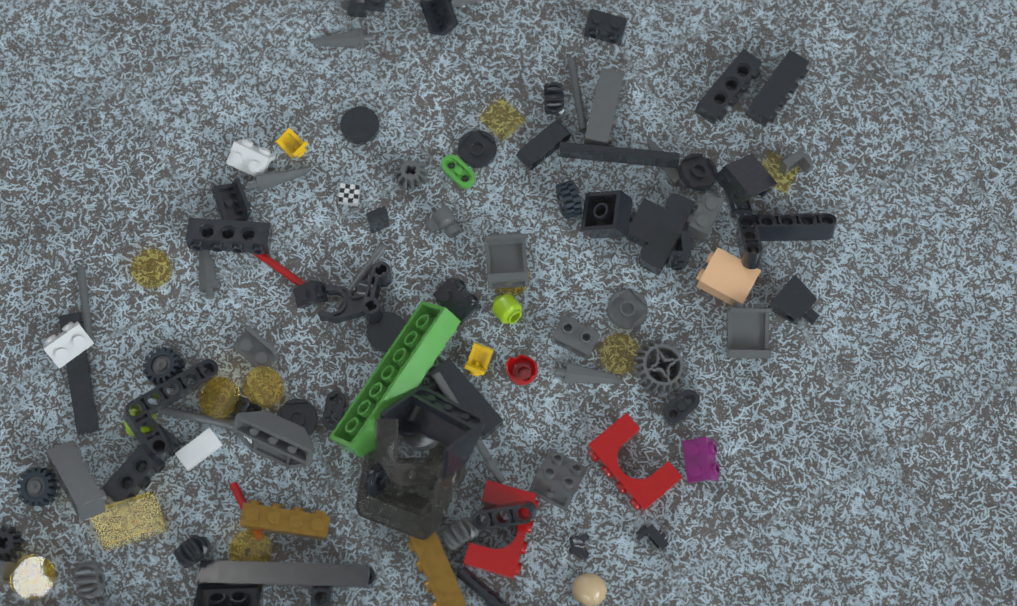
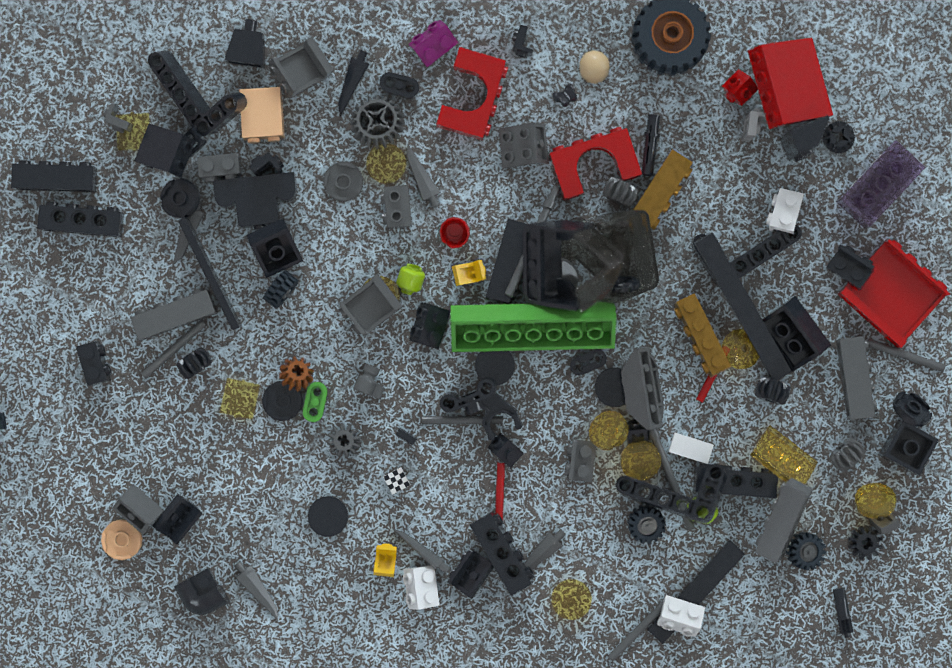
camera: 125 degrees left, 15 degrees up
(489, 162) = (291, 378): none -> dark orange gear
(496, 521) = (594, 167): black beam -> none
(543, 145) = (242, 345): black beam -> none
(712, 373) = (354, 74): none -> black bar

